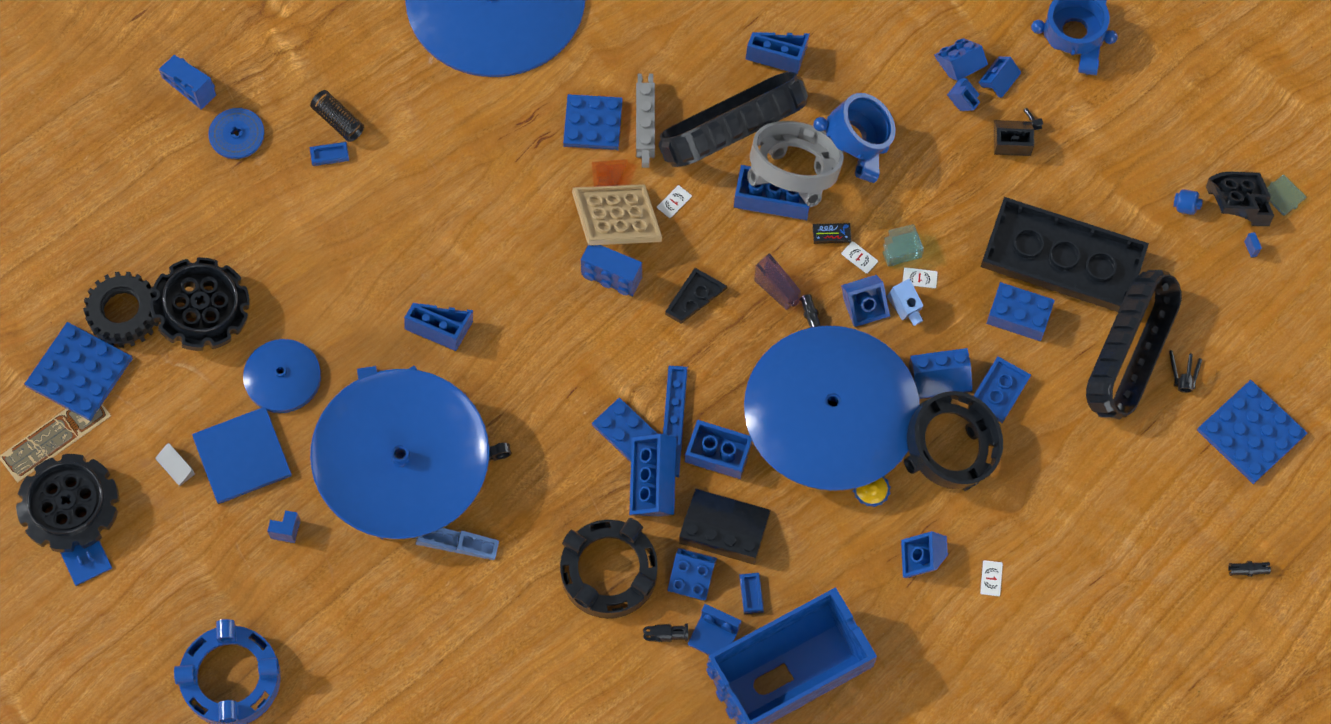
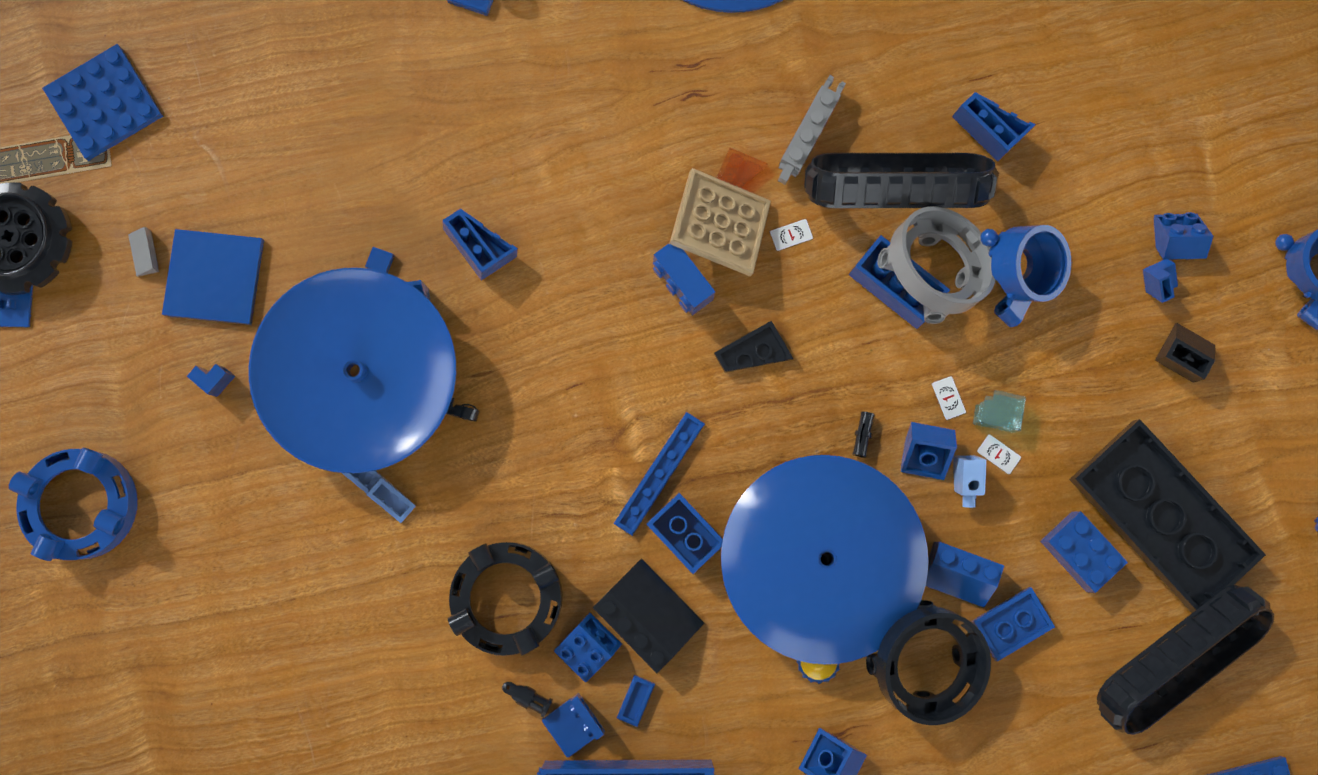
camera: 25 degrees right, 15 degrees up
(126, 331) = (193, 78): black tyre -> none
(171, 290) = (225, 66): black piece -> none
(287, 390) = (307, 229): blue dish -> none
(592, 122) = (755, 103): blue plate -> none
(620, 425) = (605, 457): blue plate -> none
(652, 475) = (603, 525): blue slope -> none
(776, 282) = (846, 384): slope -> none
(831, 233) = (934, 357): black tile -> none
(1000, 75) = (1212, 276): blue panel -> none
(1036, 123) = (1220, 350): black hand -> none
(1185, 382) = (1214, 723): black plant -> none

